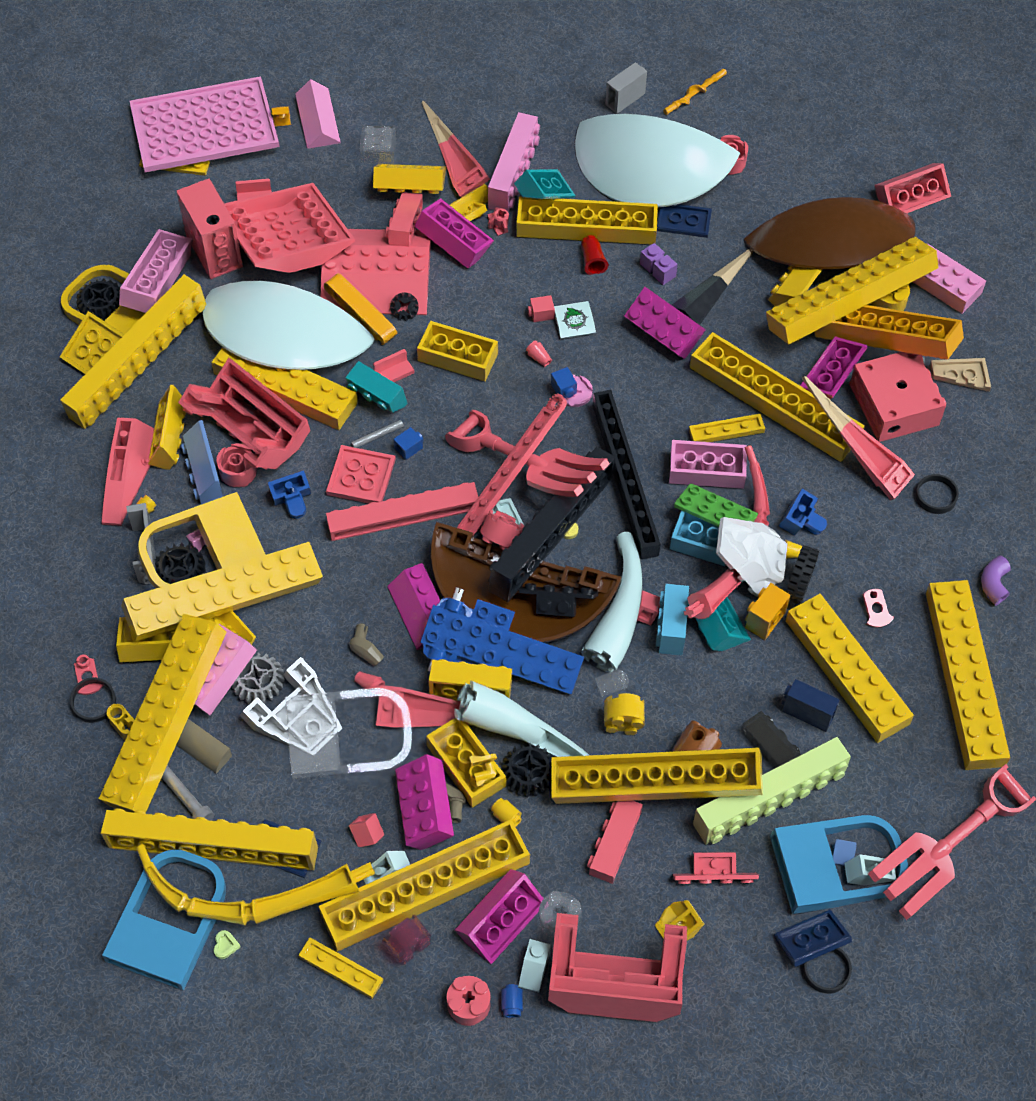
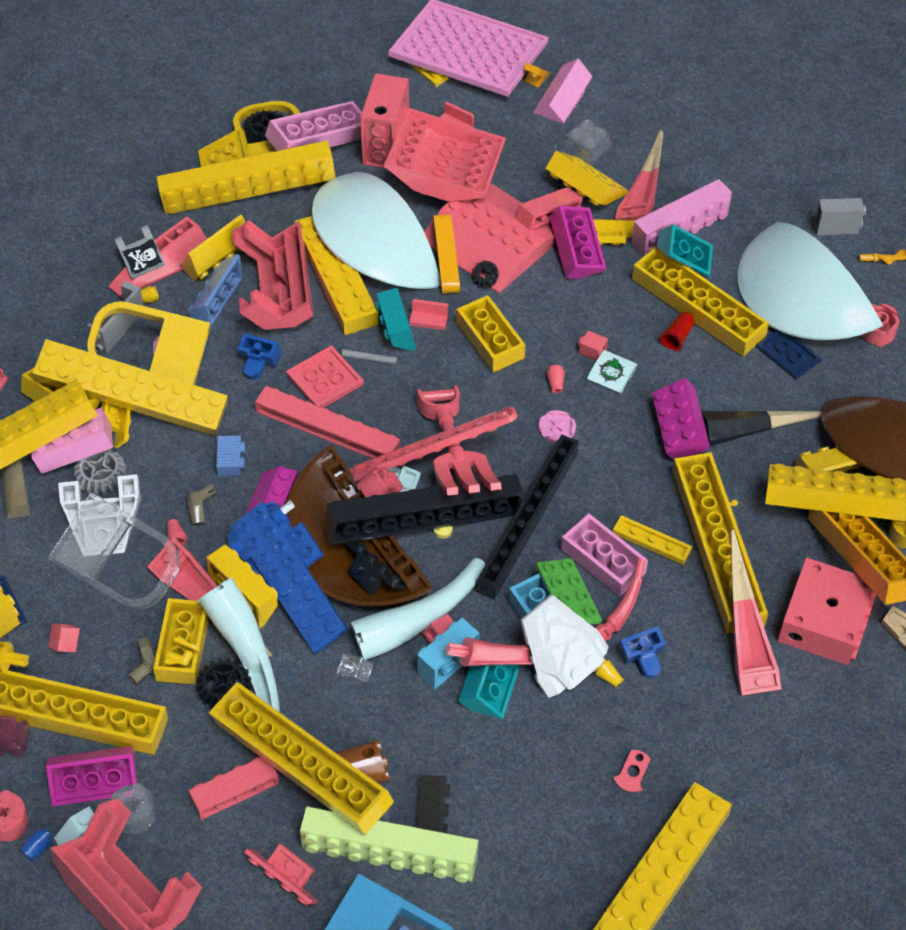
camera: 40 degrees right, 5 degrees down
(110, 475) = (141, 255): none -> flag
(179, 561) = (137, 347): black gear -> none
(234, 466) = (230, 308): coral brick -> none
(350, 589) = (230, 455): none -> medium blue brick
(387, 864) = (51, 671): light aqua slope -> none
(408, 443) = (383, 378): blue brick -> none
(424, 802) = (118, 646): dark pink brick -> none
(499, 220) = (628, 257): coral piece -> none
(505, 811) = (175, 703): yellow brick -> none
(564, 383) = (548, 412): blue brick -> none
(624, 714) = (335, 696): yellow brick -> none
(664, 267) = (726, 372): medium lavender piece -> none
(680, 914) = (216, 889): yellow slope -> none
(767, 611) = (531, 703): light orange brick -> none
(802, 573) = (587, 693): black tyre -> none
(810, 705) = (490, 802): dark blue brick -> none
(835, 365) = (788, 550): dark pink slope -> none
(849, 668) = (557, 801): yellow brick -> none
(941, 478) = (783, 737): black tyre -> none
(991, 579) = (761, 821): medium lavender cylinder -> none

